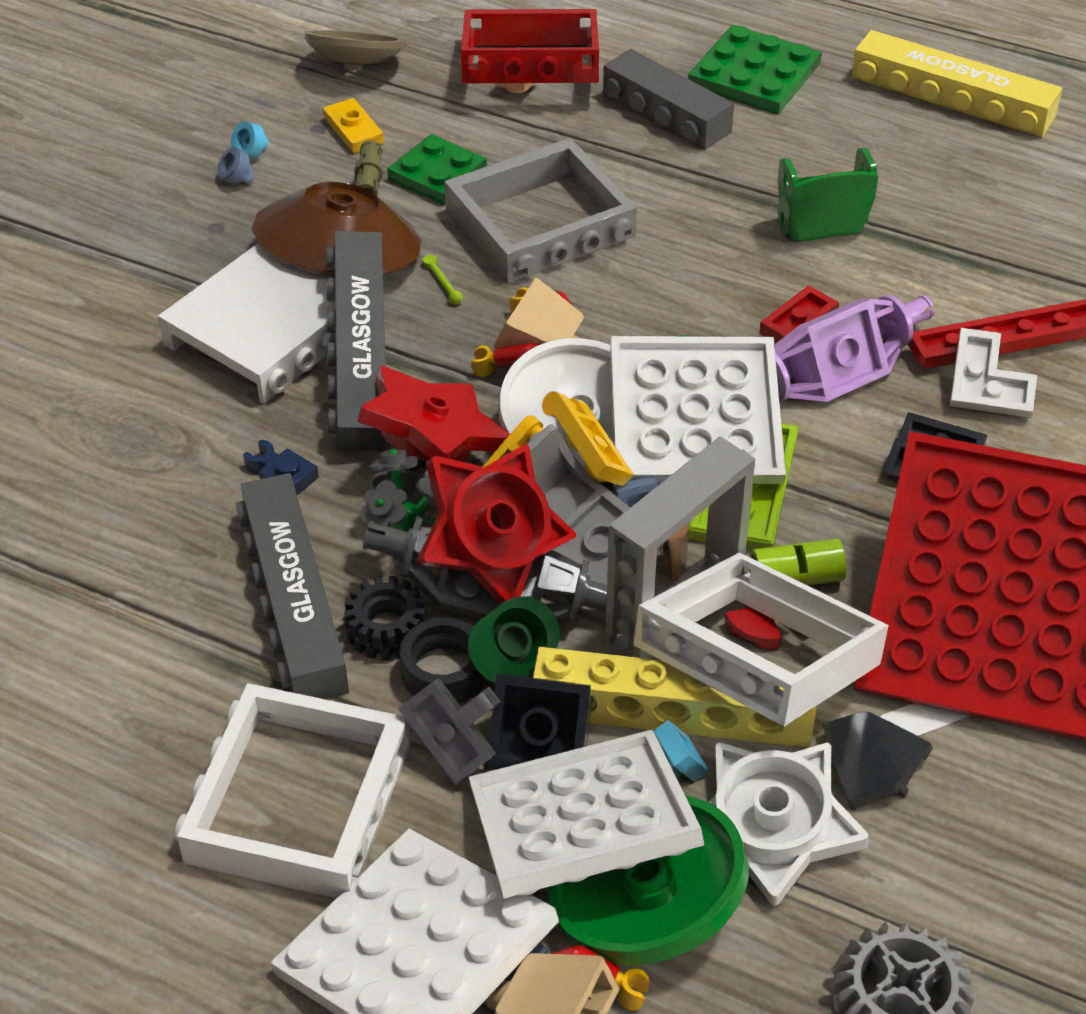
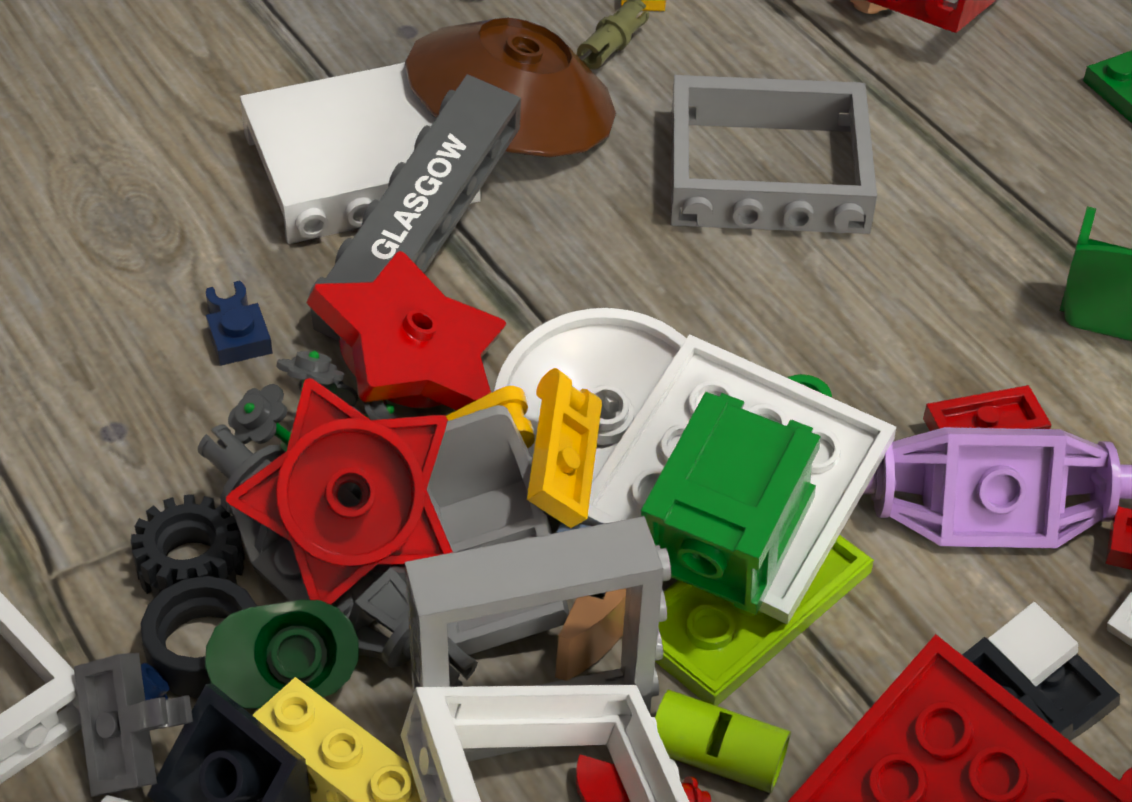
camera: 30 degrees right, 0 degrees up
(293, 589) = (116, 469): dark grey brick -> none
(430, 262) = (600, 164): lime hinge -> none
(431, 164) = (694, 51): green plate -> none
(535, 318) = (644, 277): tan torso -> none
(668, 99) = (1035, 87): dark grey brick -> none
(726, 400) = (732, 499): none -> green container
(925, 422) = (1035, 643): none -> white tile

